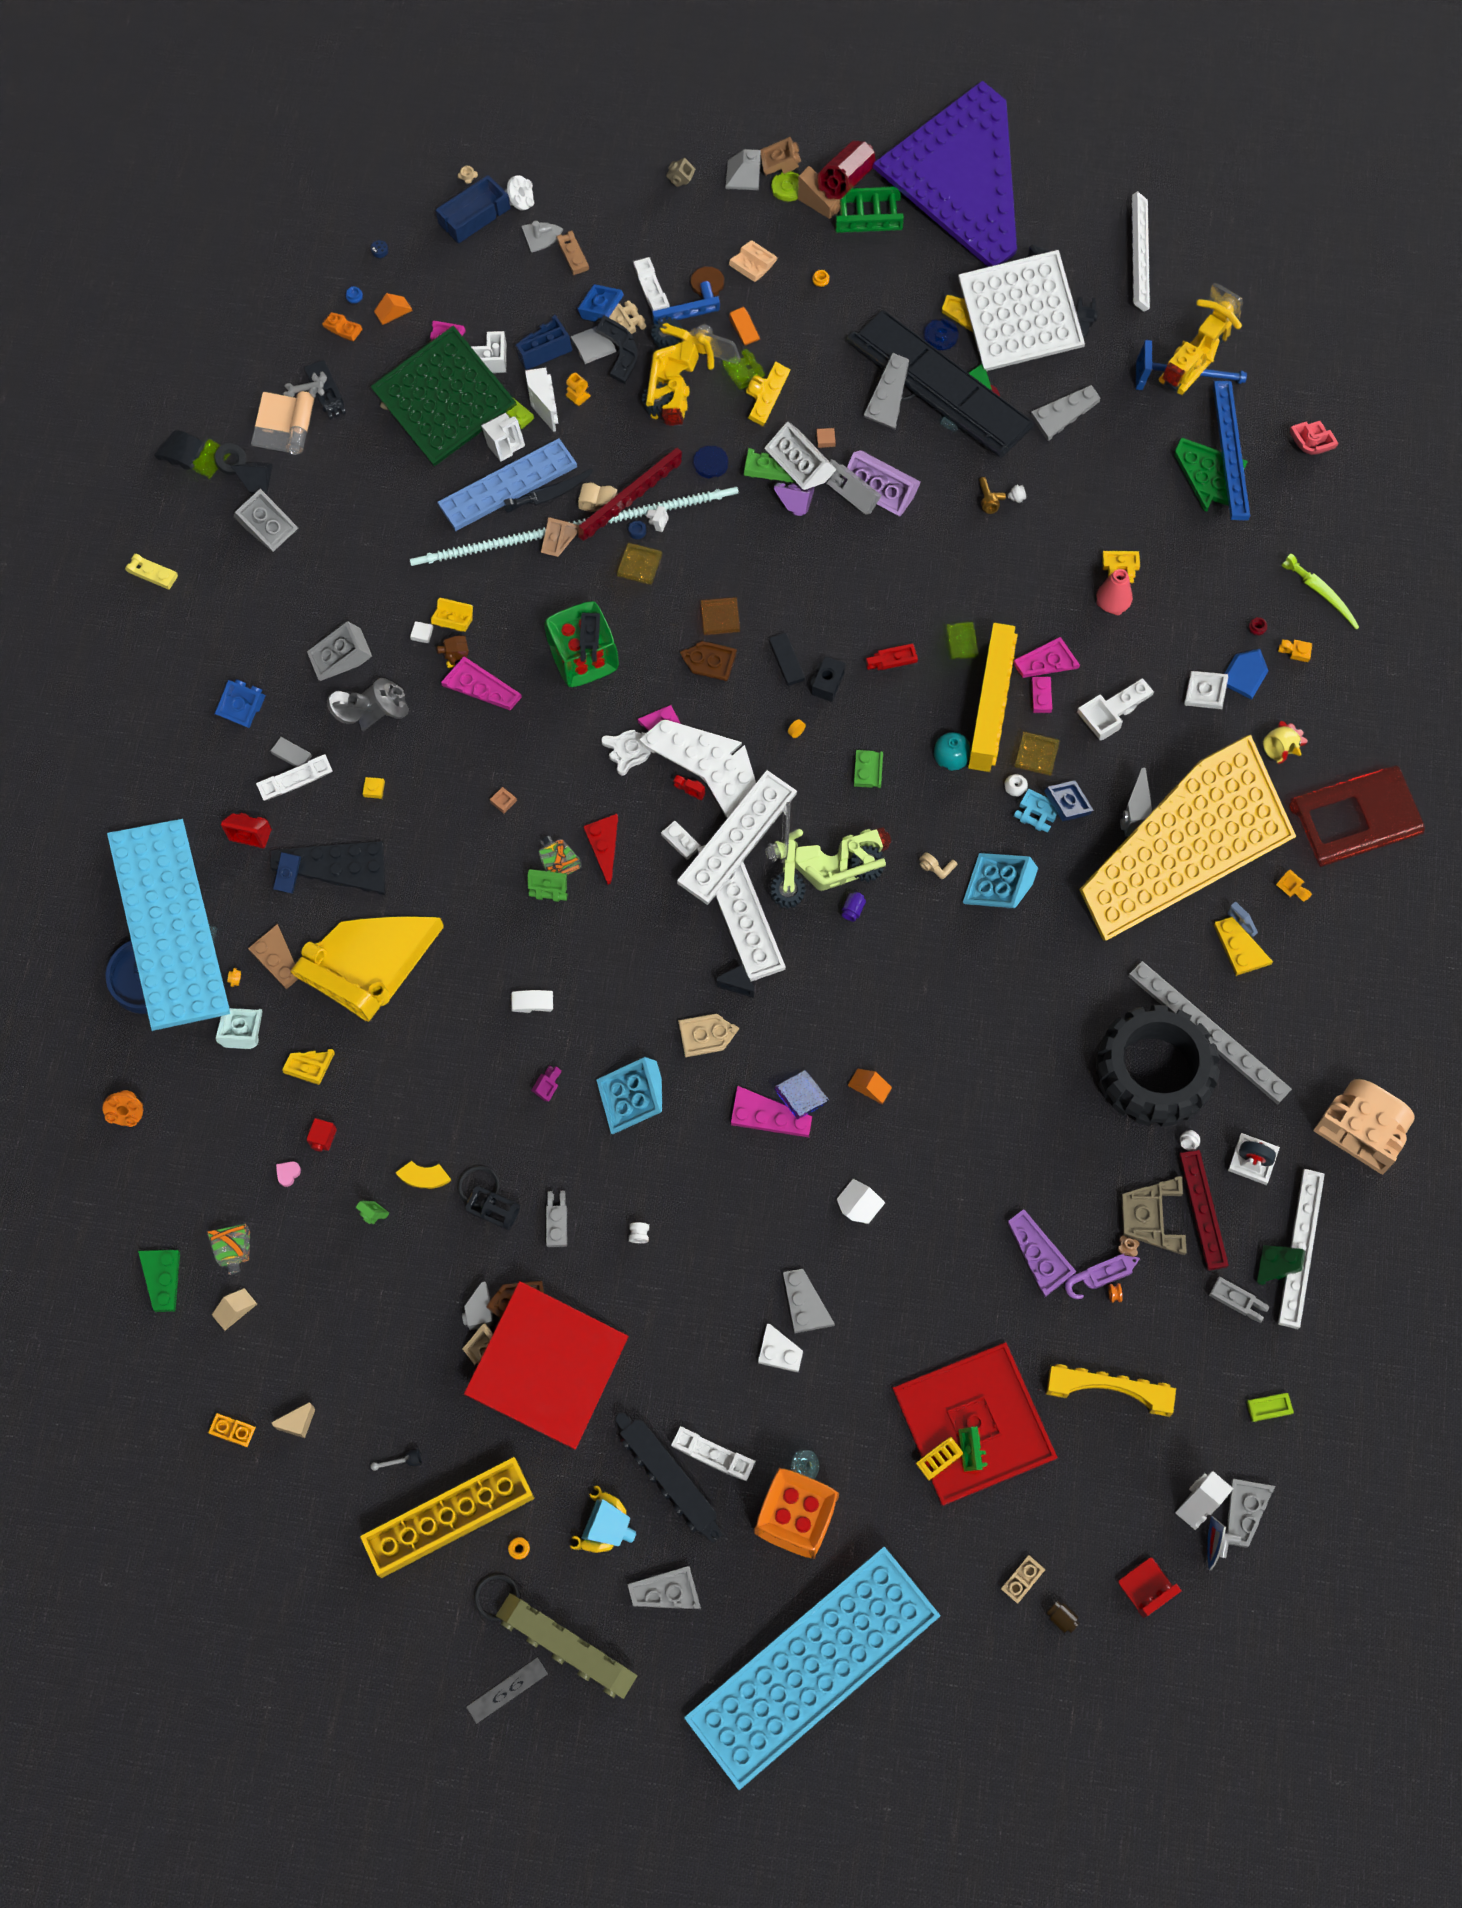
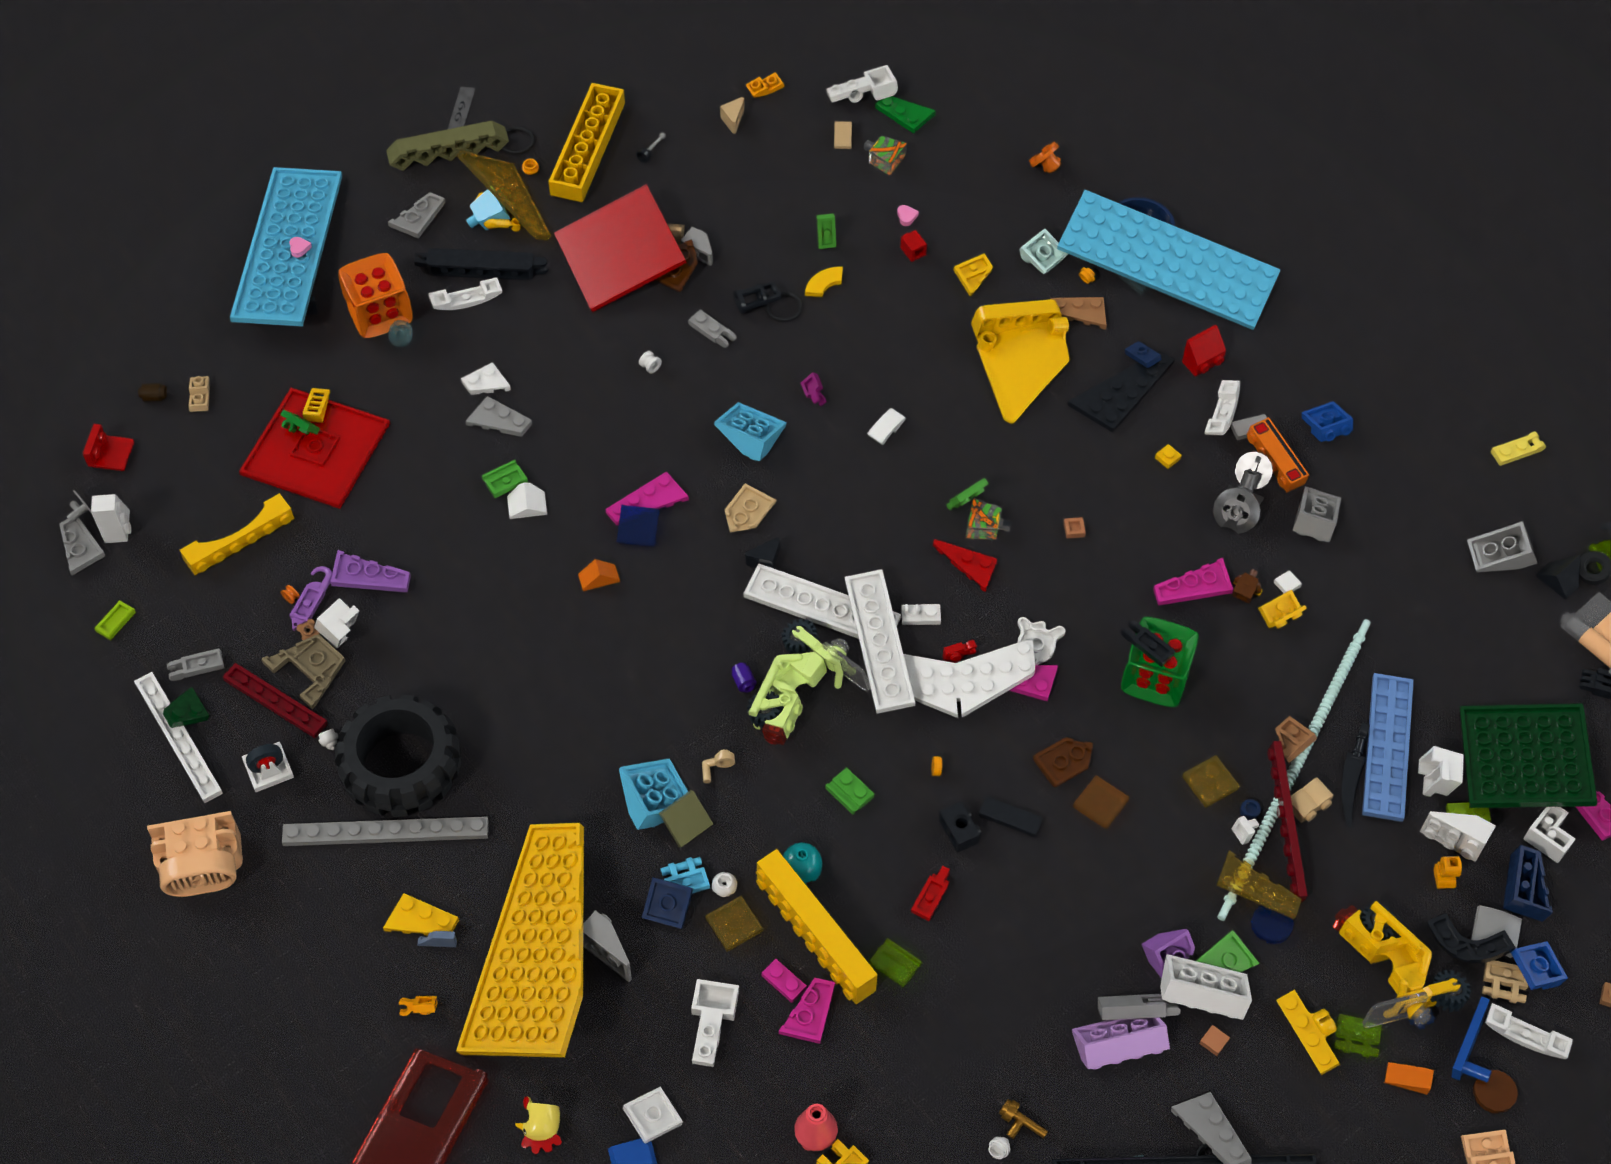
camera: 130 degrees right, 10 degrees down
(149, 1324) = (878, 81): none -> white plate
(307, 711) = (1285, 464): none -> orange brick
(569, 1536) = (507, 186): none -> clear yellow wing
(698, 479) = (1246, 882): none -> clear yellow wing
(809, 1644) = (299, 246): none -> bright pink tile
(856, 1237) = (504, 478): none -> bright green plate
(999, 842) = (686, 818): none -> olive tile
(1105, 1221) = (335, 622): none -> white plate

